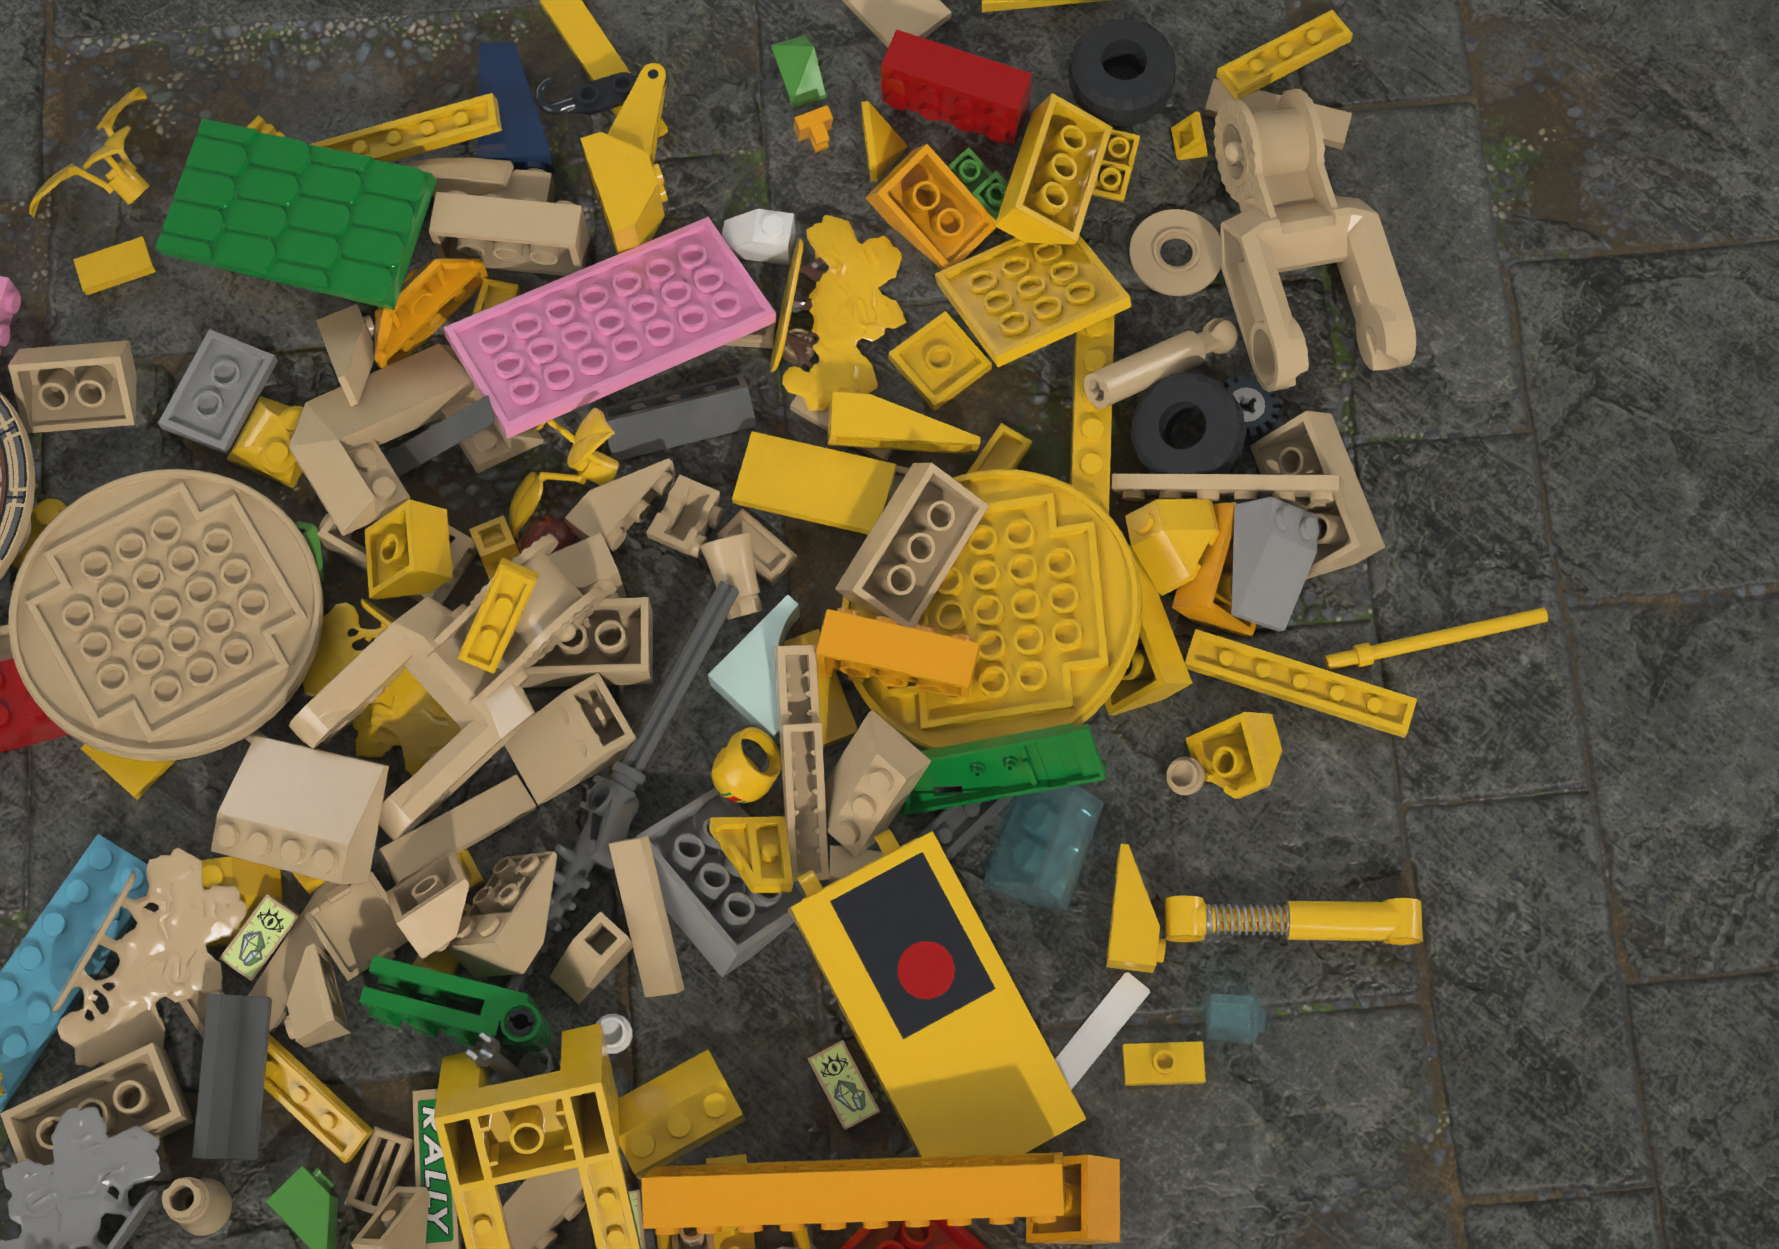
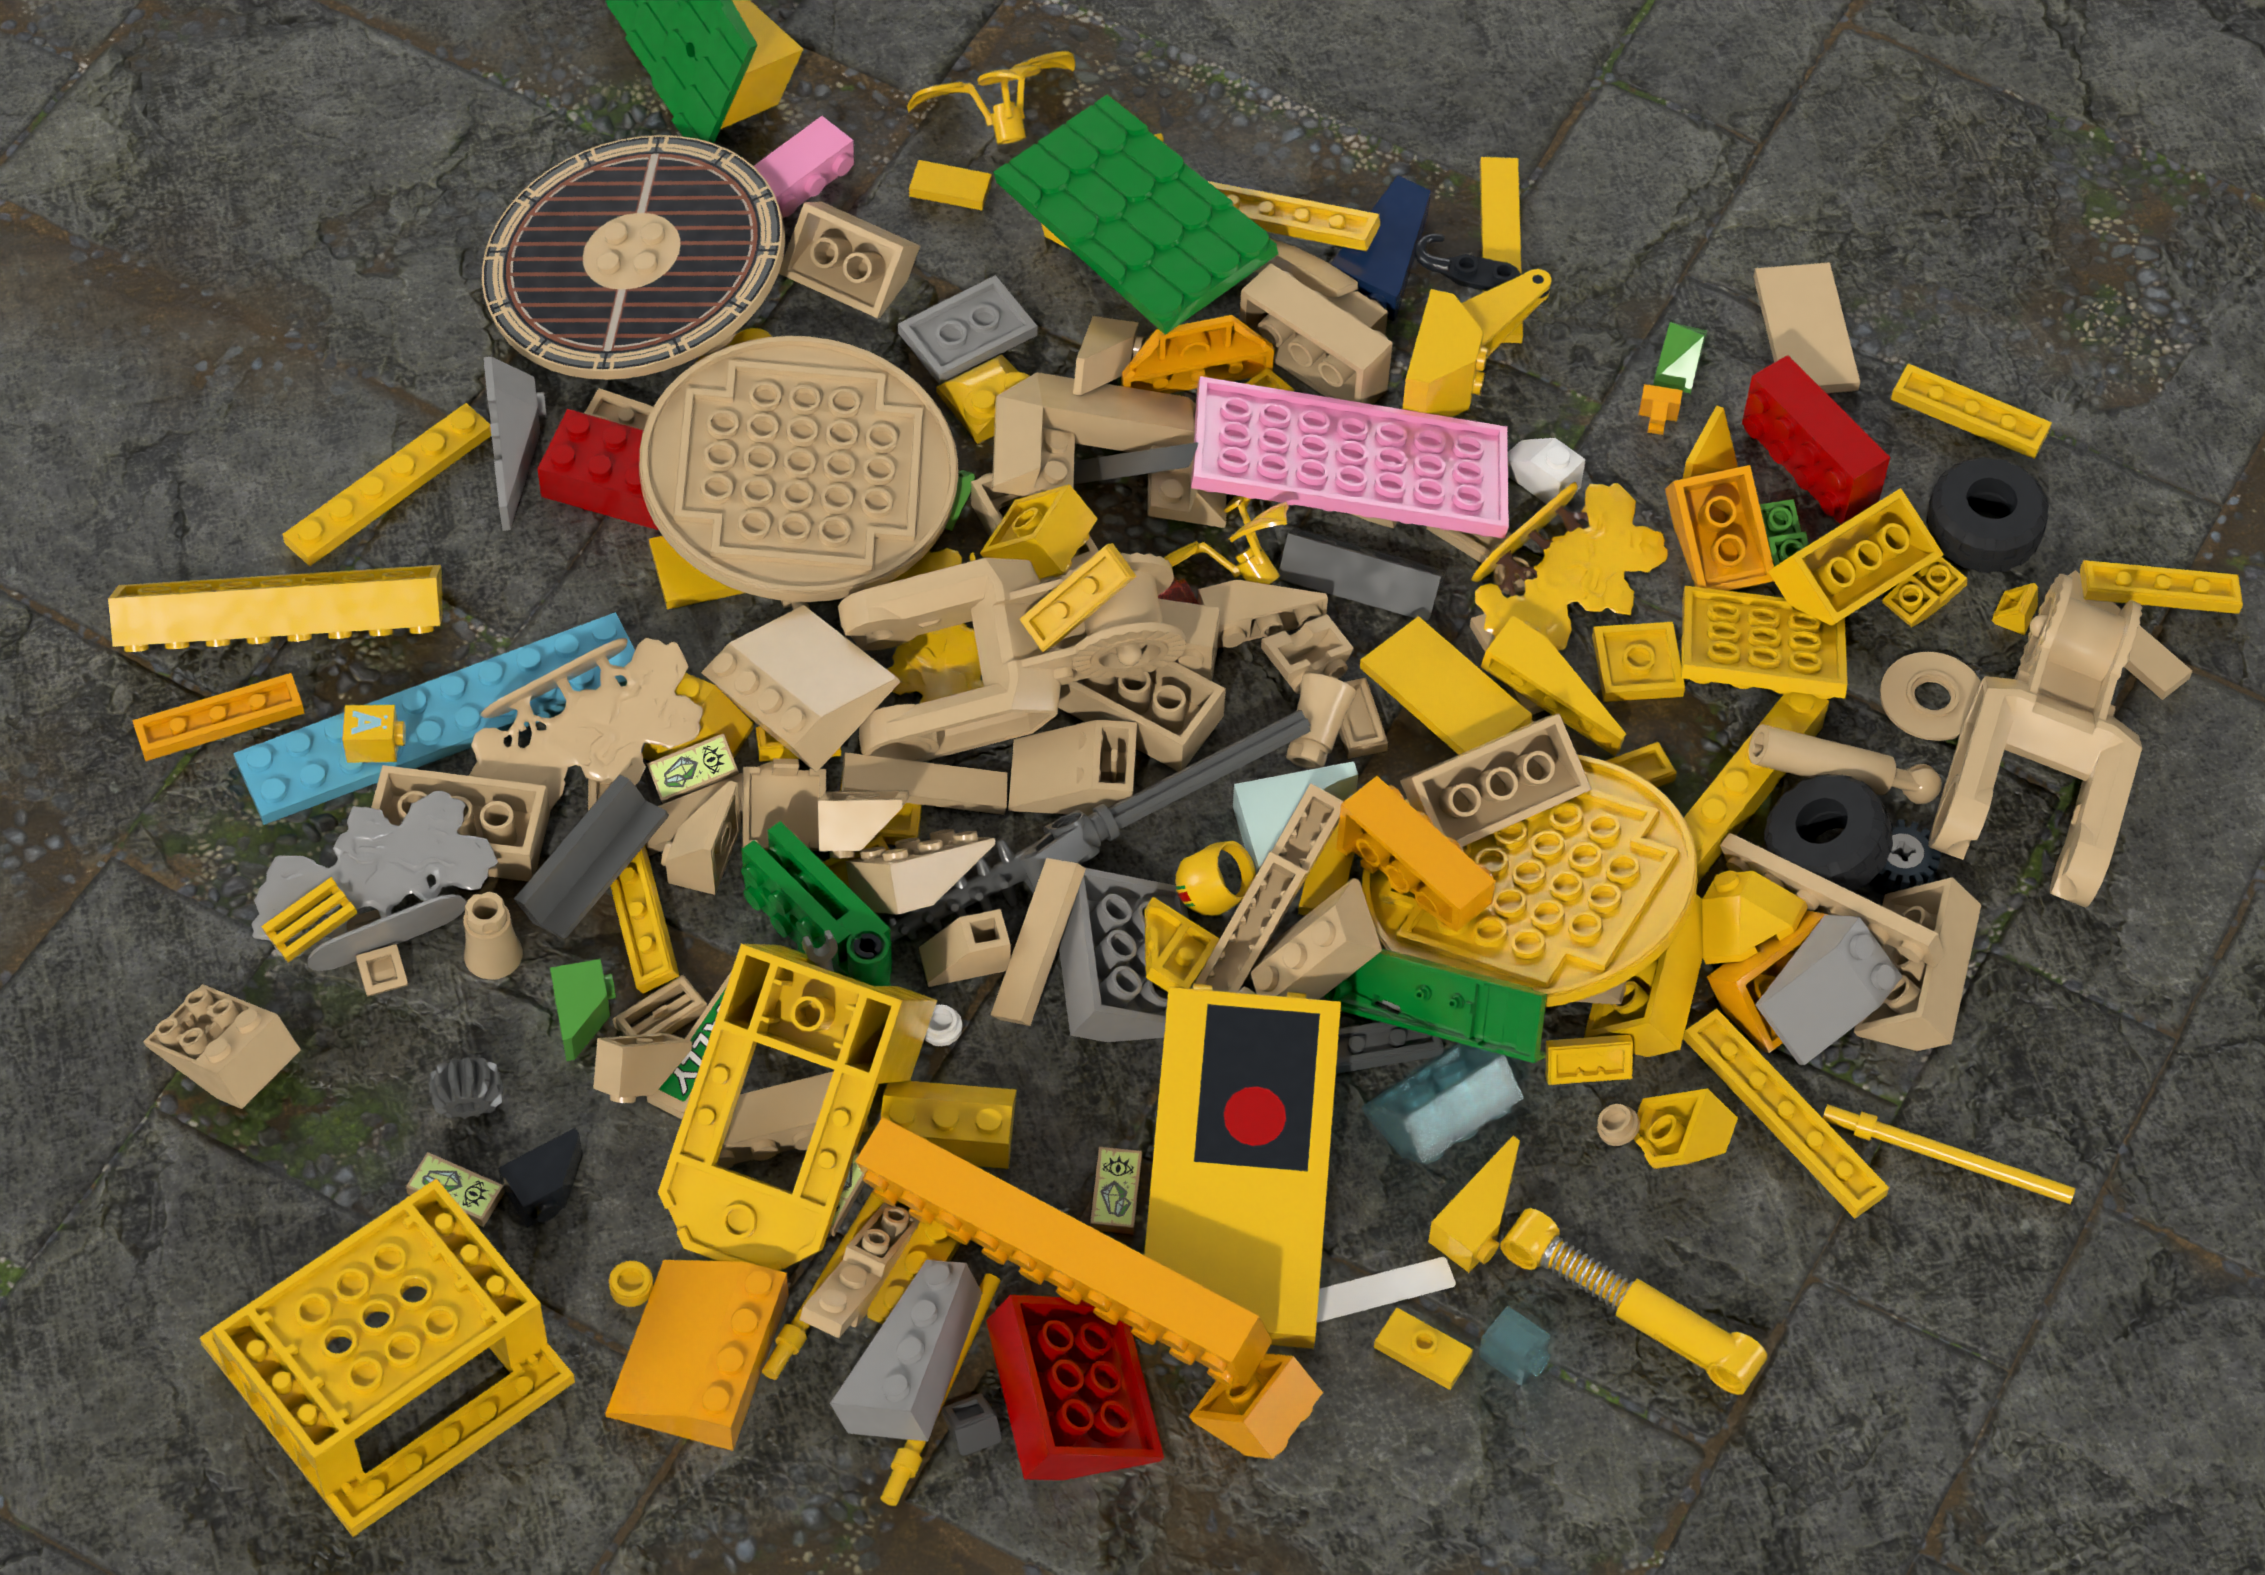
camera: 30 degrees right, 15 degrees down
(1130, 733) = (1589, 1059): none -> yellow plate

